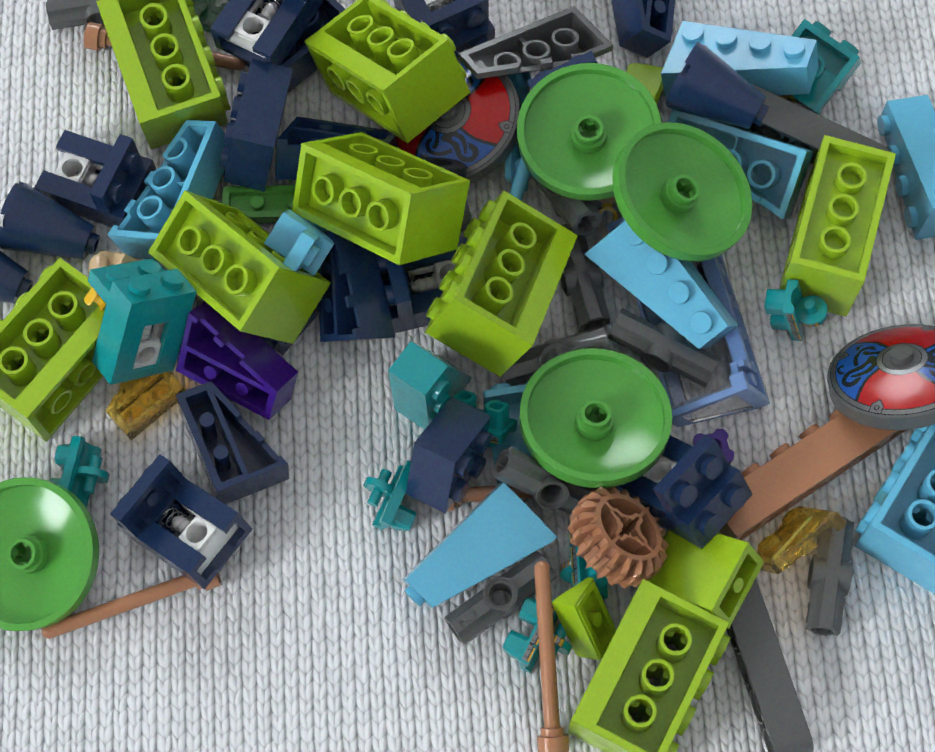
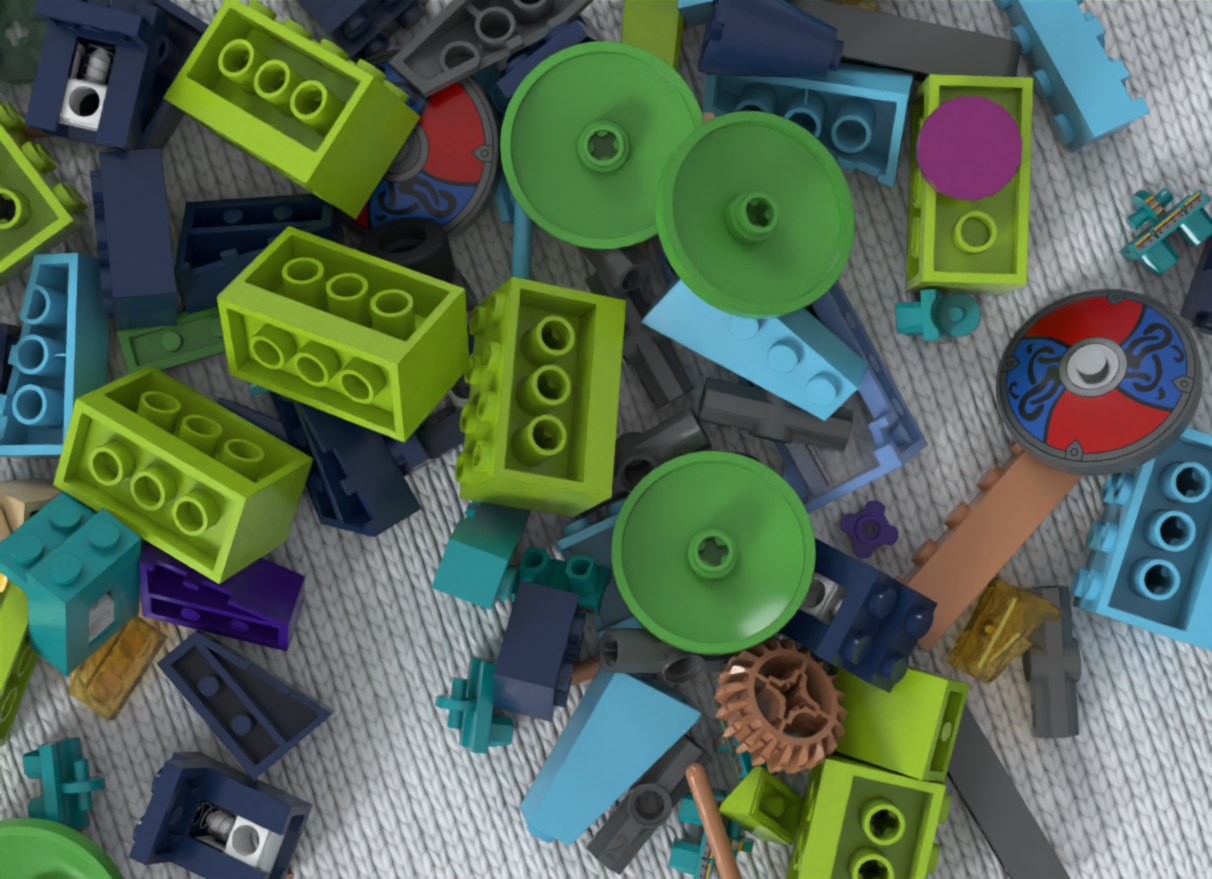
camera: 20 degrees left, 20 degrees up
(299, 242) = (257, 424): medium azure brick -> none
(841, 183) = (969, 148): none -> magenta tile

